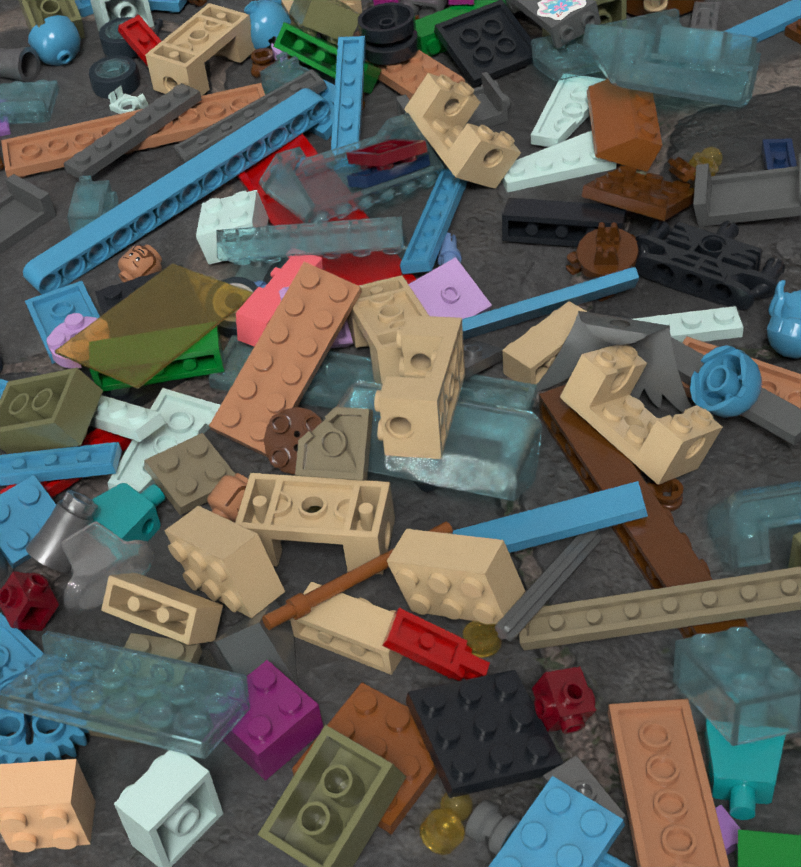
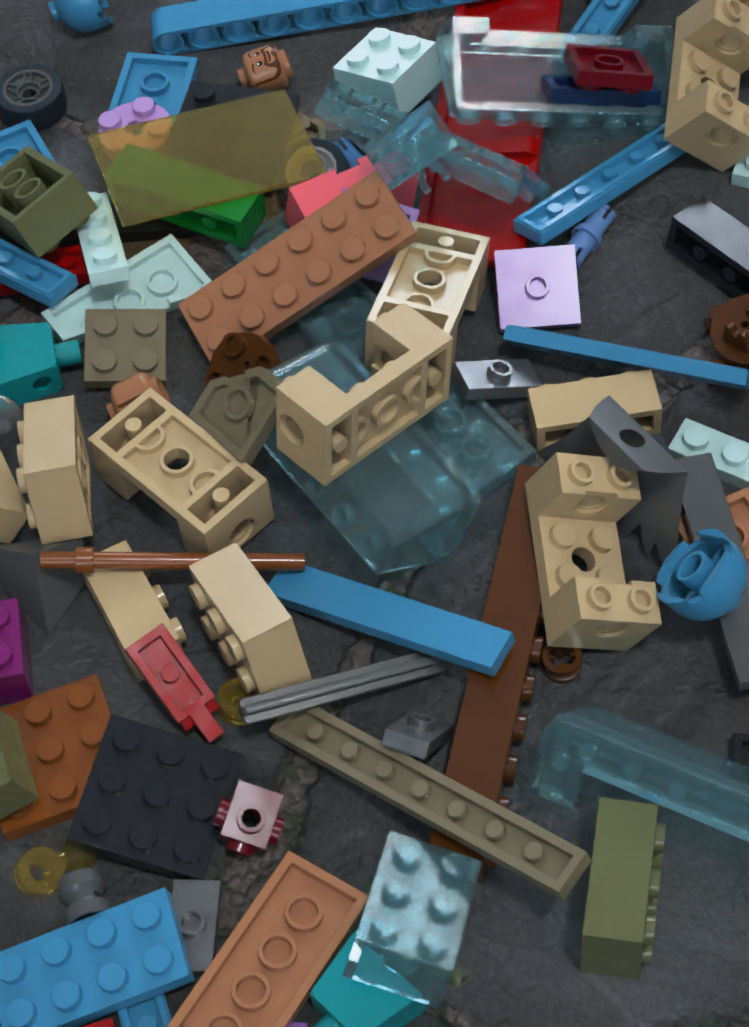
camera: 35 degrees right, 10 degrees up
(318, 236) = (411, 147): none -> clear light blue brick
(628, 580) = (417, 734): none -> flat silver plate

